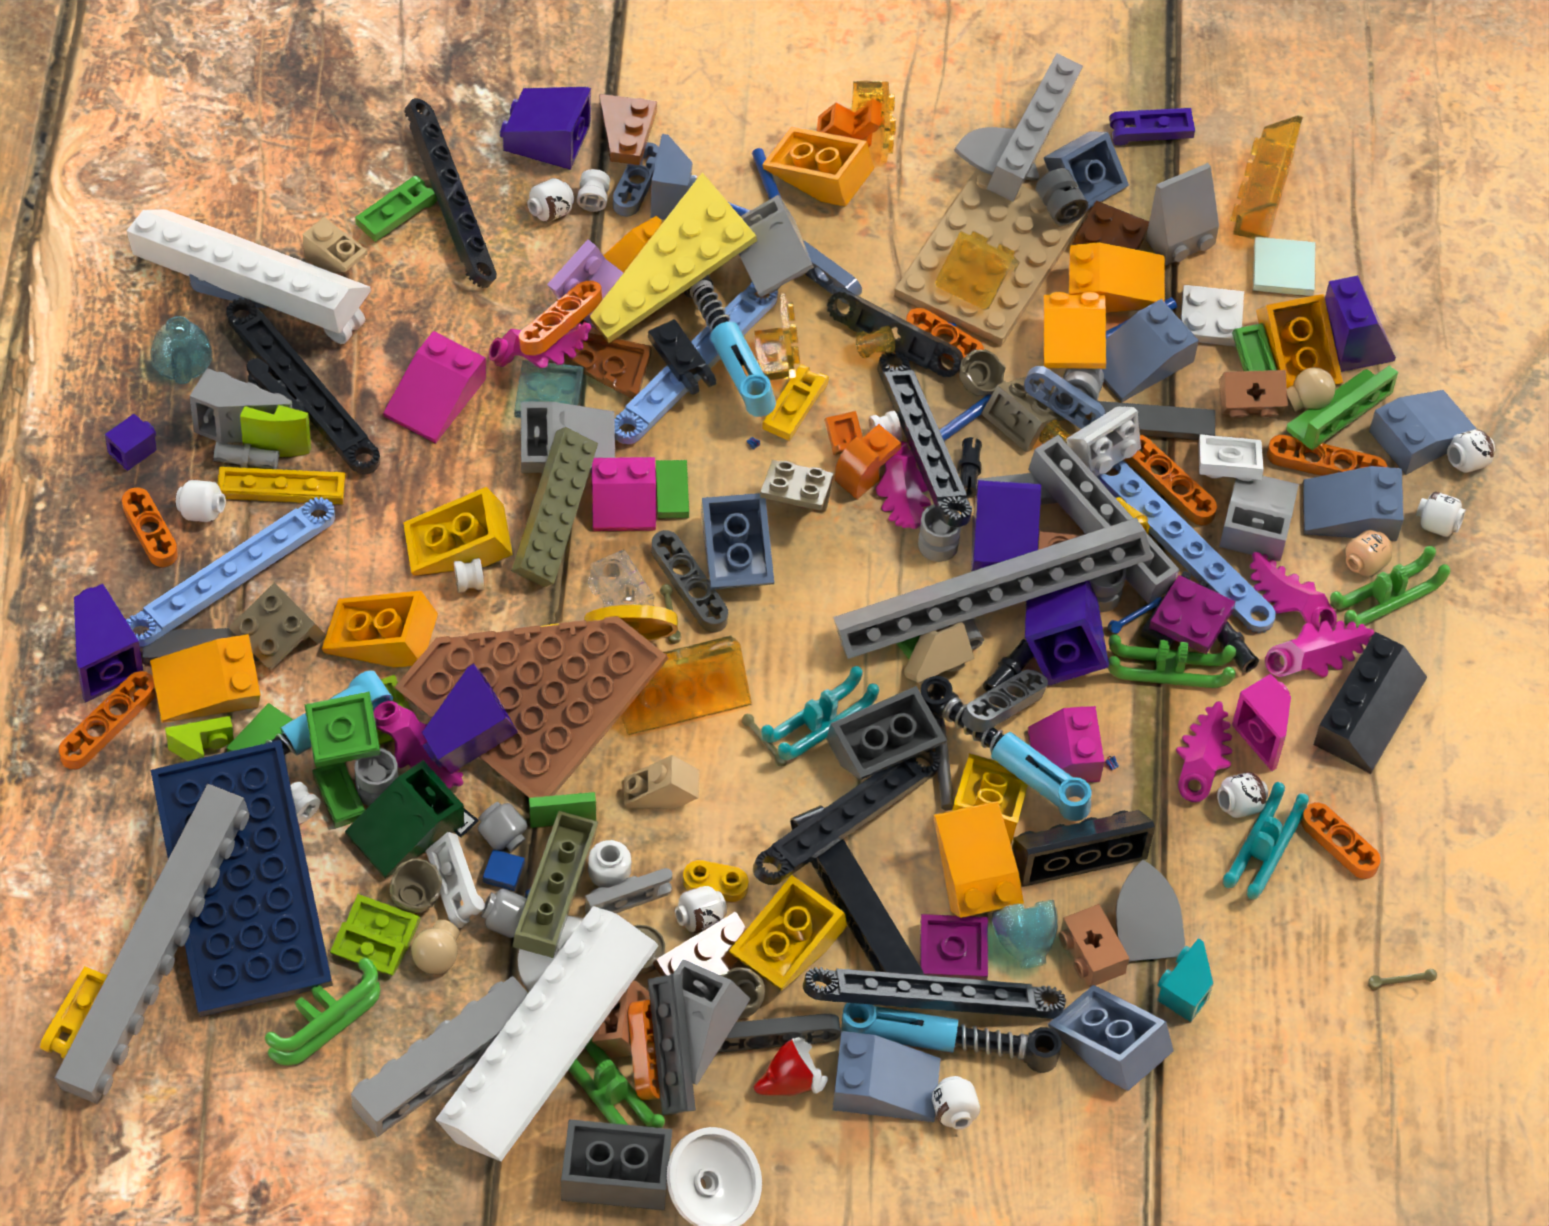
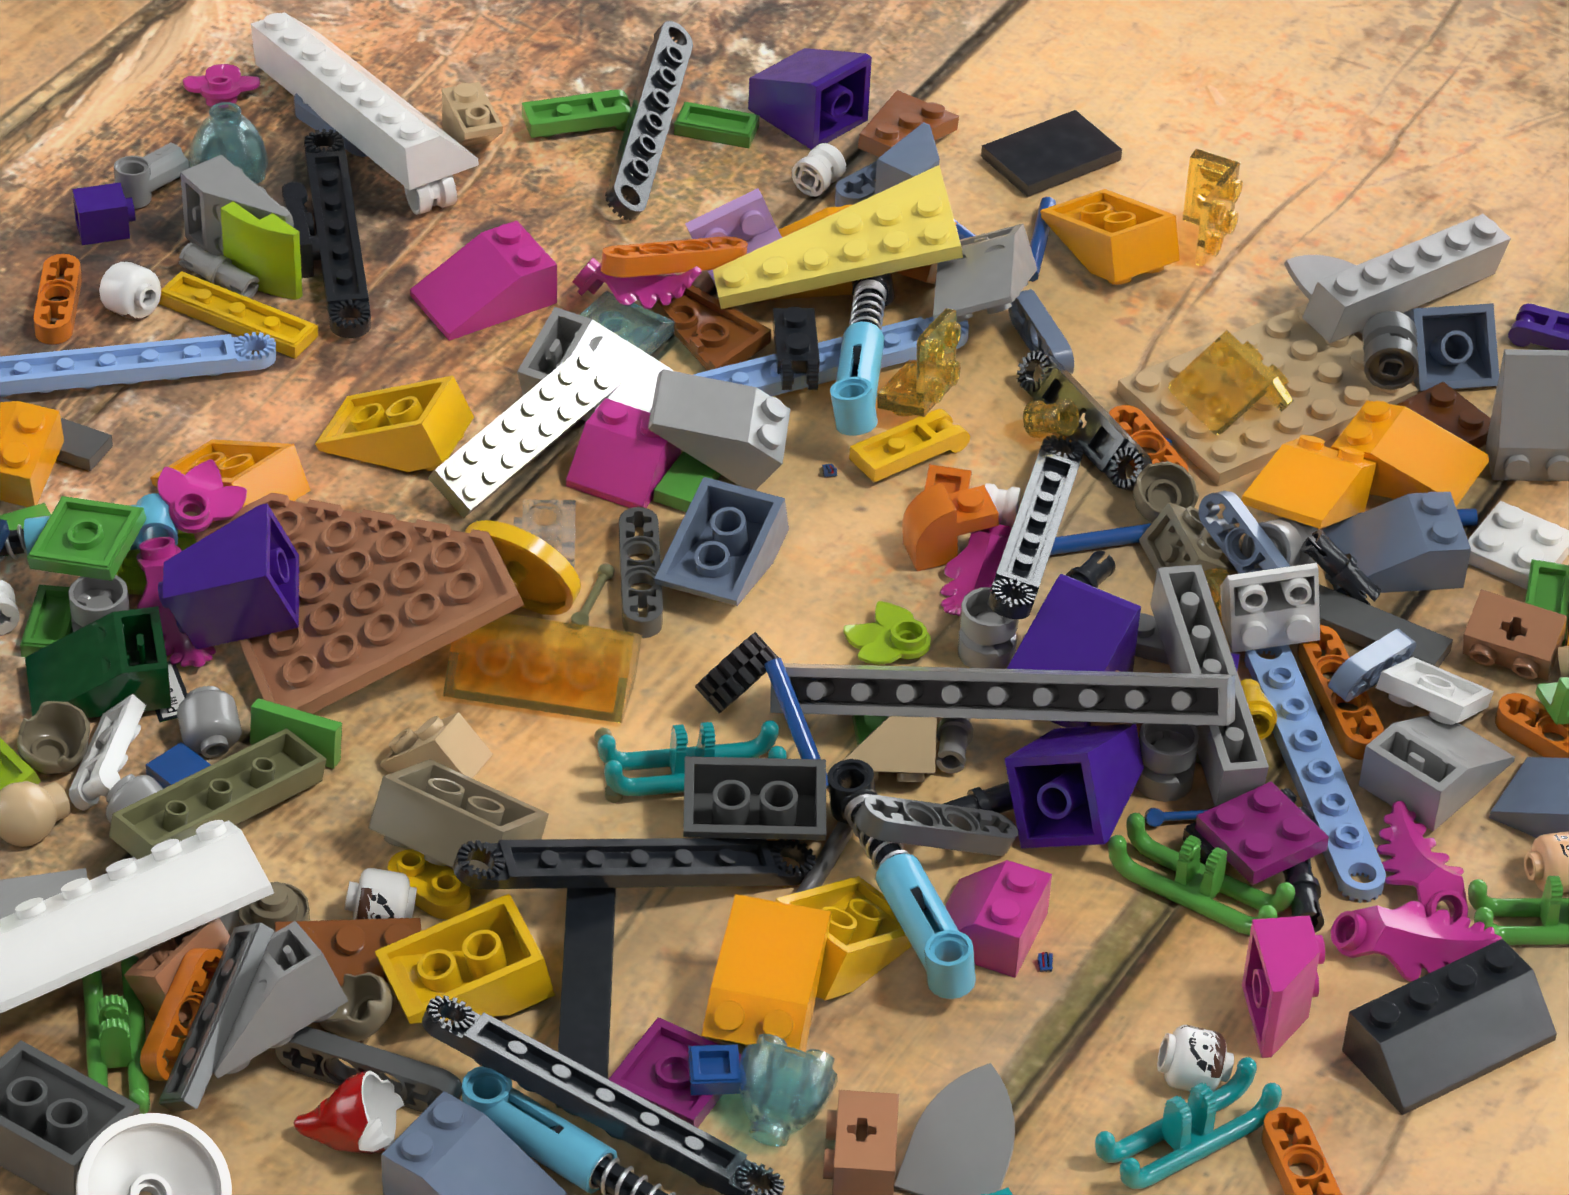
camera: 30 degrees right, 15 degrees down
(127, 286) = (221, 84): none -> dark pink plate
(138, 390) = (145, 174): none -> light grey piece
(275, 626) = (111, 427): dark tan bracket -> none
(390, 658) = (200, 493): none -> dark pink plate
(469, 575) = (376, 467): white wheel -> none
(494, 175) = (716, 124): none -> bright green tile
(550, 200) = (760, 161): white head -> none
(609, 863) = (303, 806): white head -> none
(631, 892) = (307, 849): light grey hinge -> none
(680, 446) = (721, 425): none -> light grey slope
(717, 832) = (443, 809): none -> dark tan brick
(733, 106) = (1051, 153): none -> black tile
(797, 485) = (839, 517): dark tan bracket -> none
(812, 639) = (736, 672): none -> black tyre
(846, 123) = (1172, 198): orange brick -> none
(871, 659) = (792, 710): none -> blue bar
(872, 562) = (890, 637): none -> lime plate
(980, 936) = (714, 1069): none -> blue tile
(1082, 847) = (924, 1029): black slope -> none
(1125, 388) = (1340, 568): none -> black pin
(1186, 456) = (1365, 667): none -> sand blue beam
(1204, 752) = (1177, 996): dark pink plant -> none

